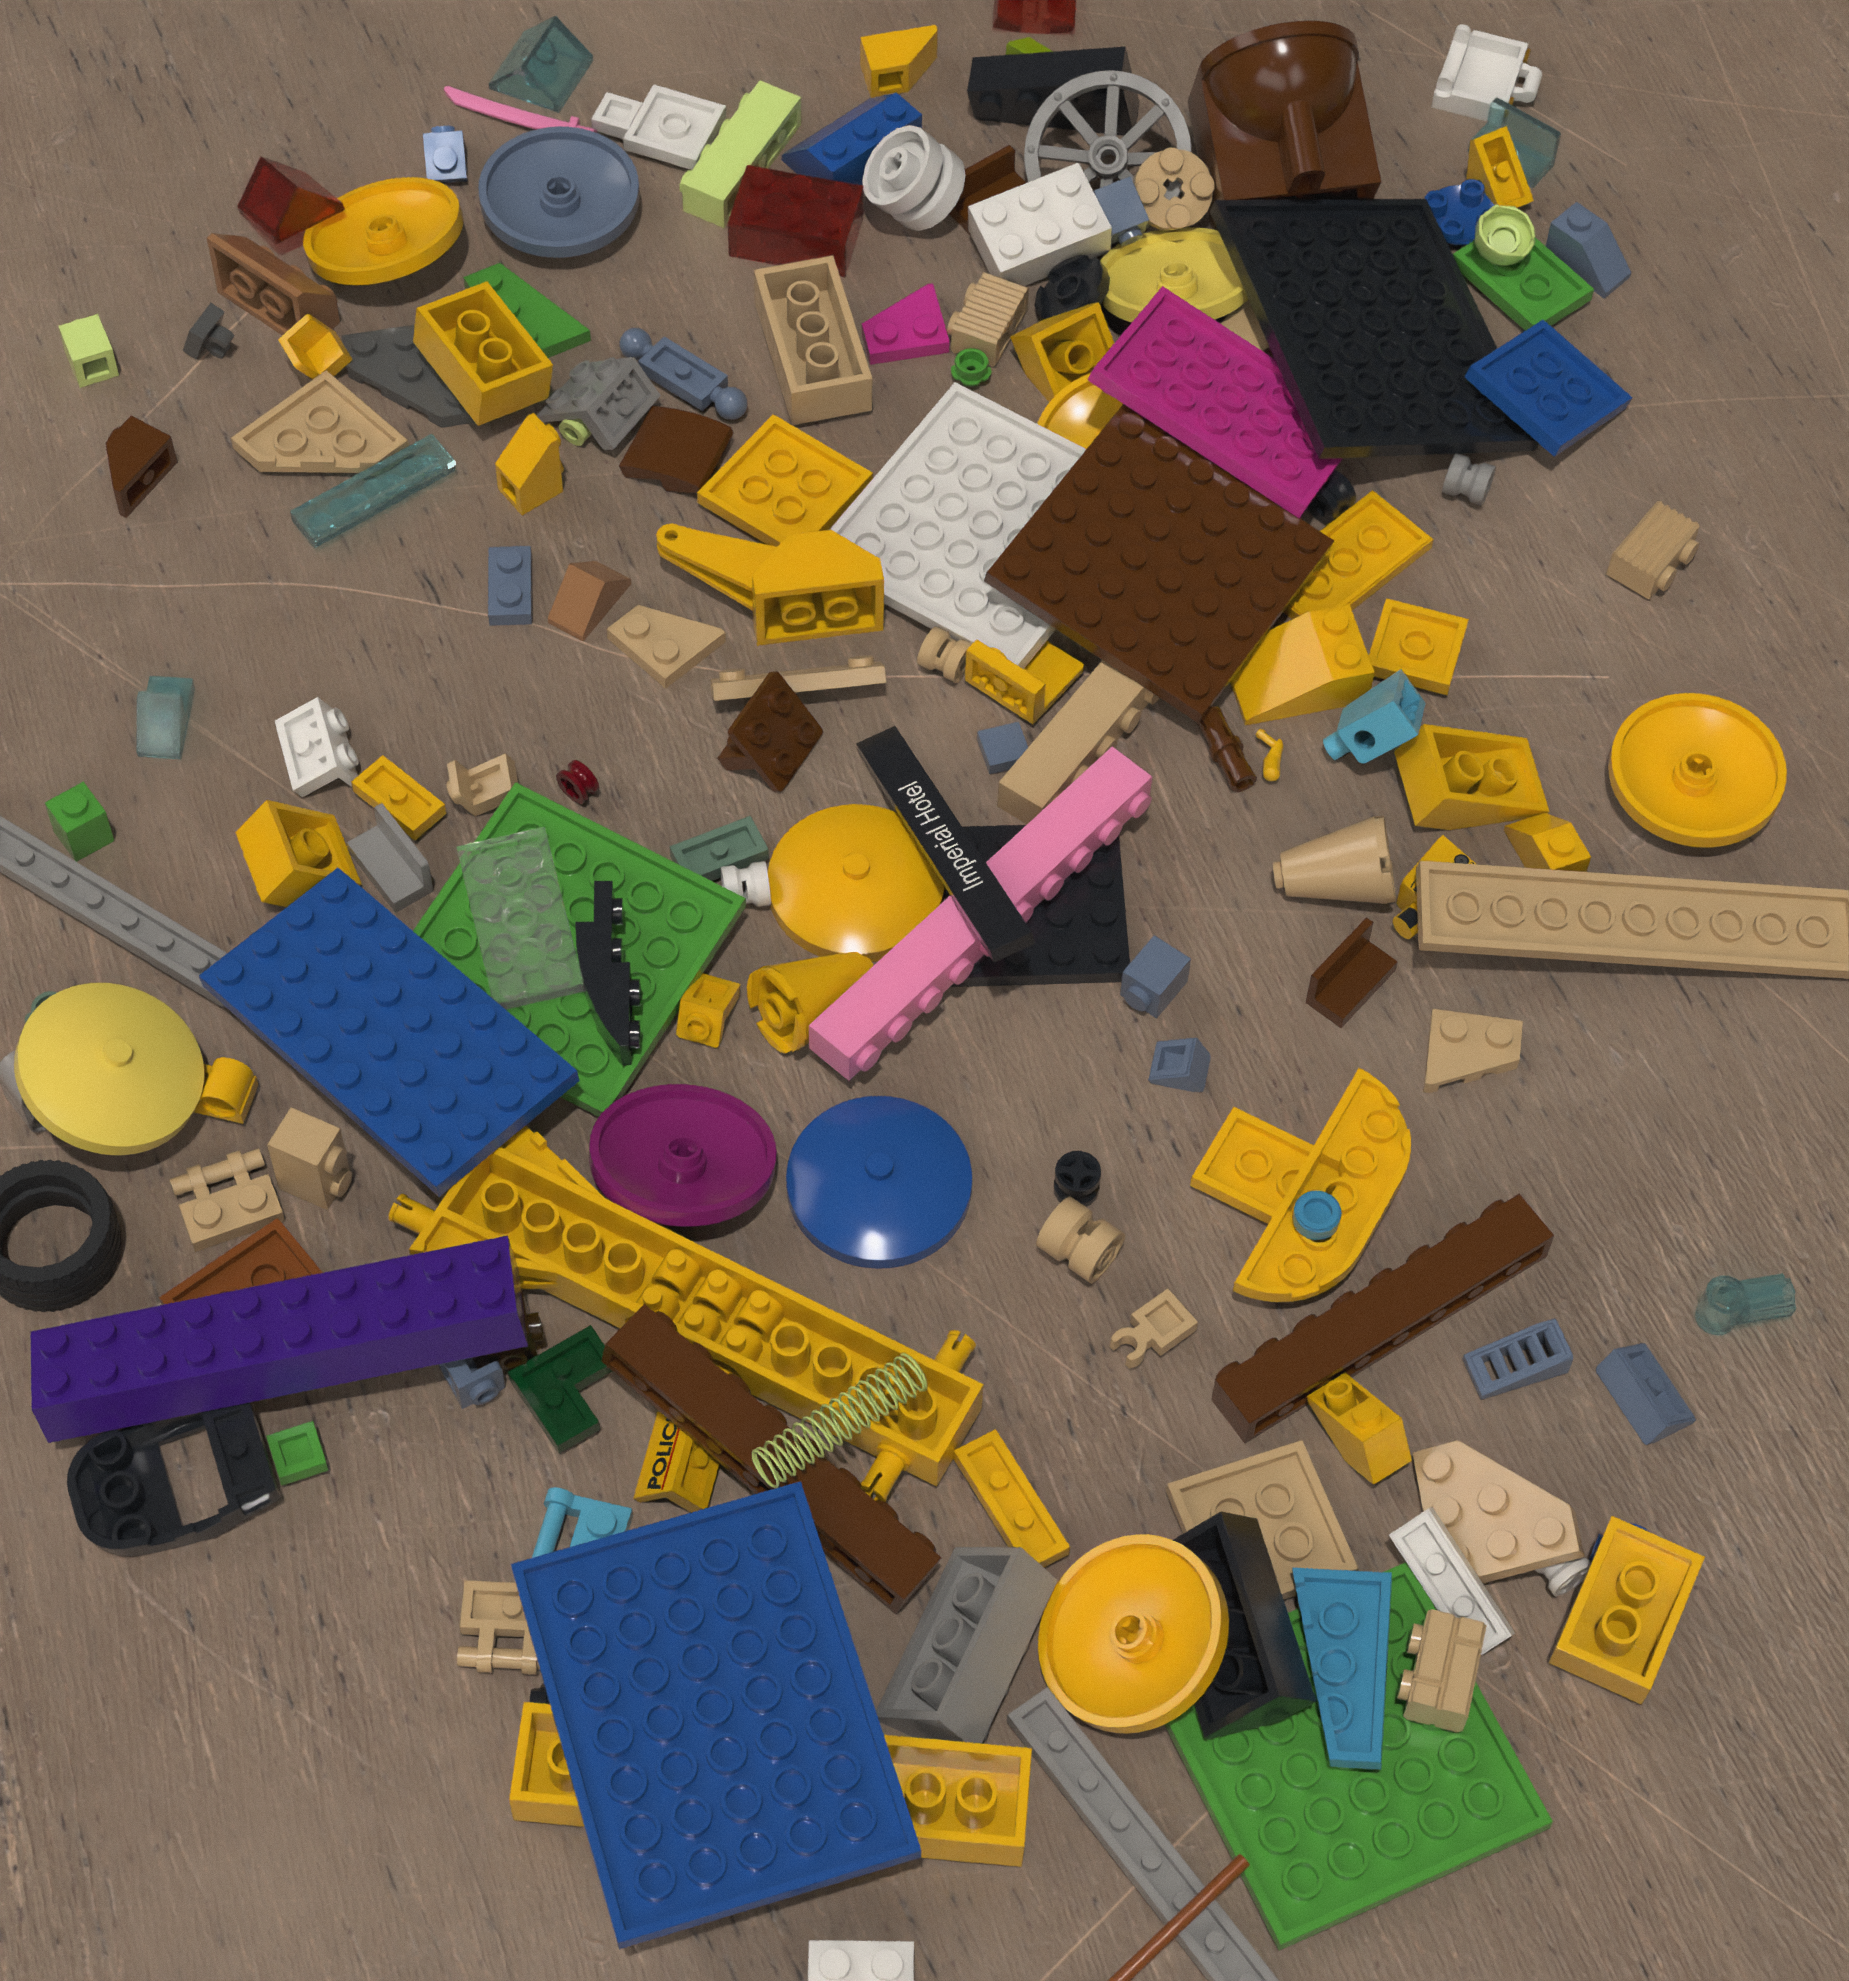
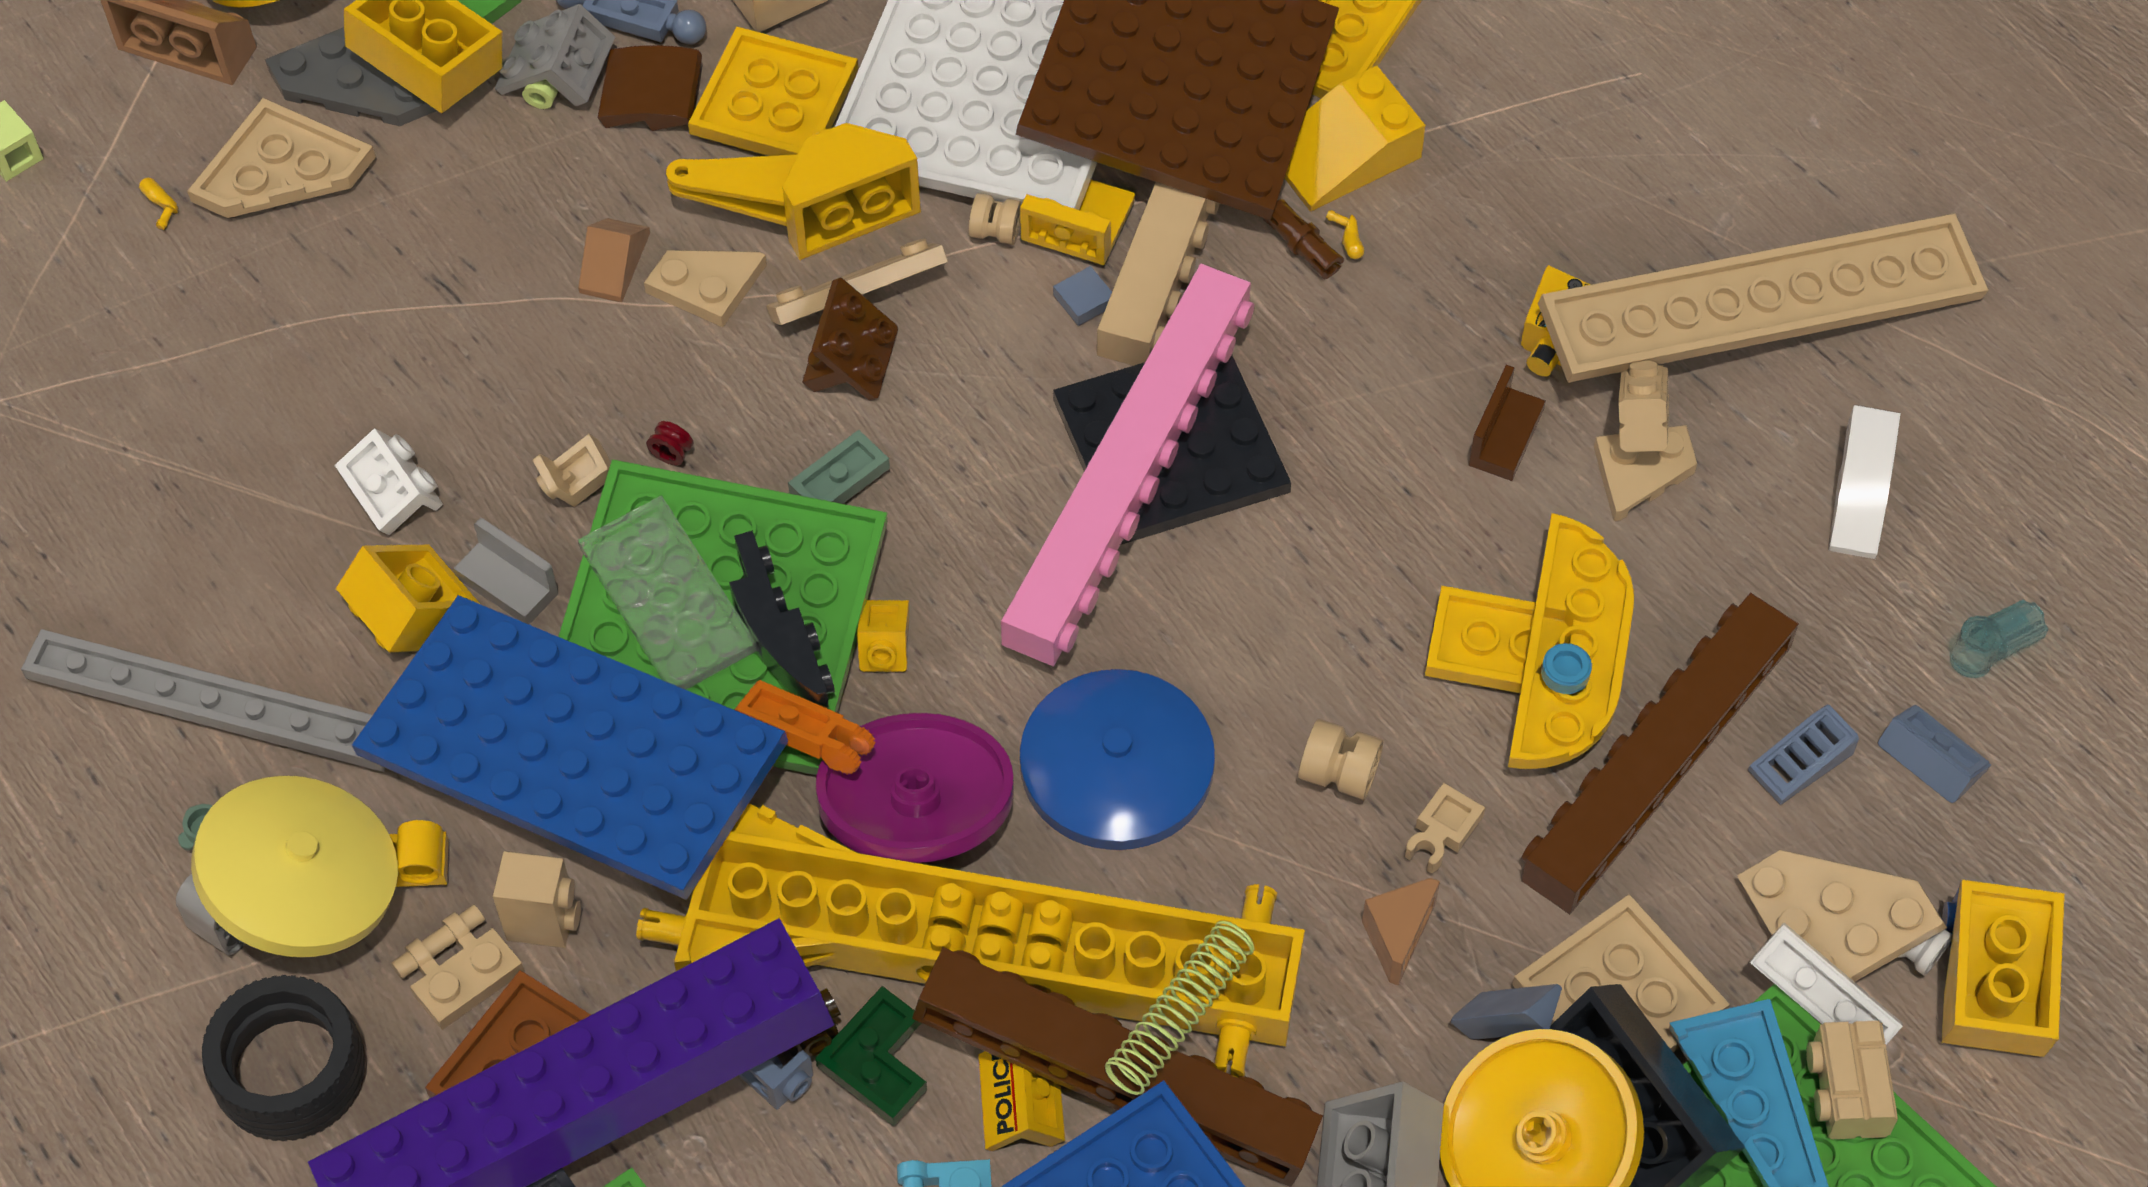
camera: 15 degrees left, 0 degrees up
(79, 821) = (166, 622): bright green brick -> none
(137, 461) = (97, 239): reddish brown slope -> none
(164, 717) = (216, 492): clear light blue slope -> none
(205, 435) = (158, 195): none -> yellow piece
(208, 334) = (127, 93): dark grey tile -> none
(314, 348) = (244, 78): yellow panel -> none
(373, 490) = (353, 207): clear light blue plate -> none
(402, 796) = (506, 509): yellow plate -> none
(510, 585) = (528, 265): sand blue plate -> none
(530, 466) = (510, 139): yellow slope -> none
(604, 1072) = (809, 726): none -> orange hinge
(755, 881) = (883, 496): white wheel -> none
(798, 992) = (975, 594): yellow cone -> none
(851, 881) = (985, 469): yellow dish -> none
(945, 844) = (1071, 404): black tile -> none
(1010, 1498) = (1364, 1036): yellow plate -> none
(1077, 1167) = (1317, 689): black wheel -> none
(1080, 1404) = (1397, 922): none -> medium nougat slope
(1147, 1514) = (1508, 1011): none -> sand blue slope
(1155, 977) = (1317, 480): sand blue brick -> none
(1180, 1064) = (1370, 559): sand blue slope -> none
(1341, 865) = (1460, 321): tan cone -> none
(1361, 1428) = (1682, 865): yellow slope -> none
(1378, 720) = (1444, 171): medium azure torso -> none
(1418, 643) = (1452, 89): yellow plate -> none
(1469, 778) = (1547, 204): yellow slope -> none
(1482, 993) = (1644, 407): none -> tan brick
(1548, 843) = (1648, 247): yellow slope -> none
(1672, 1120) = (1864, 481): none -> white slope
(1697, 770) = (1763, 138): yellow dish -> none

